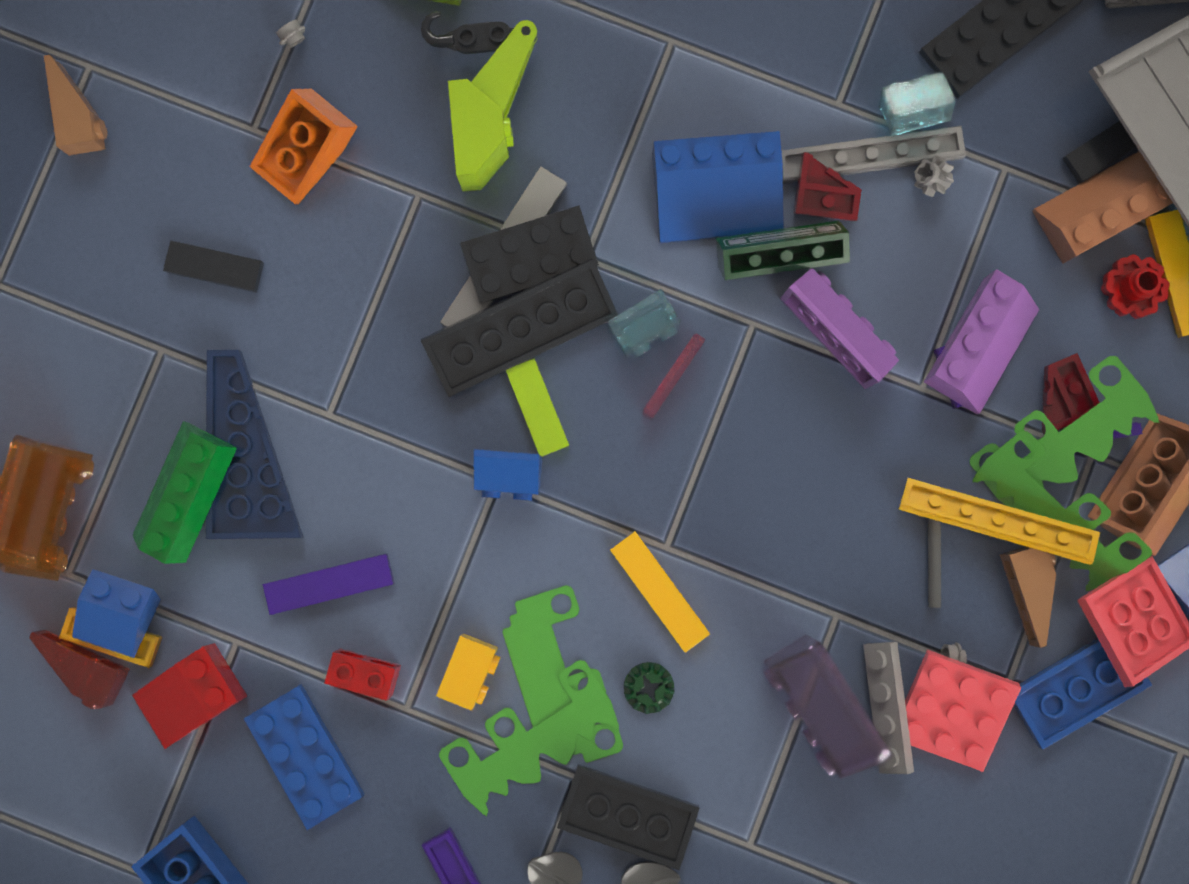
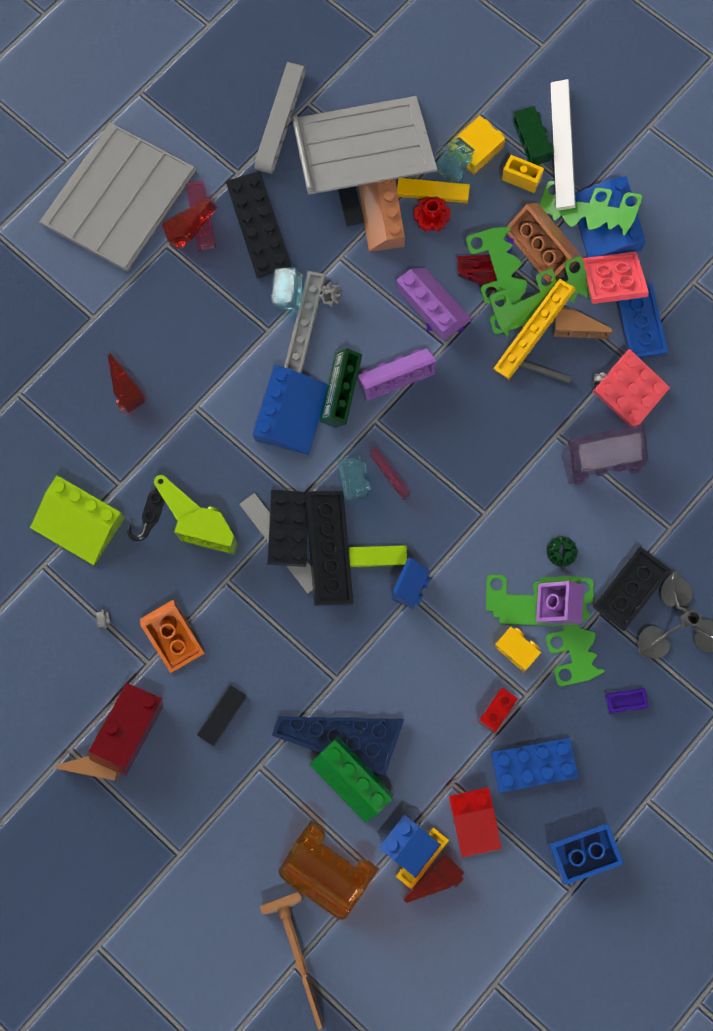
camera: 65 degrees left, 10 degrees down
(132, 131) = (125, 729): none -> dark red brick
(328, 584) = (437, 714): dark purple tile -> none
(562, 713) = (560, 603): none -> medium lavender slope
(660, 592) = (509, 525): yellow tile -> none
(824, 192) = (317, 354): dark red wing -> none
(889, 705) = (607, 421): light grey plate -> none

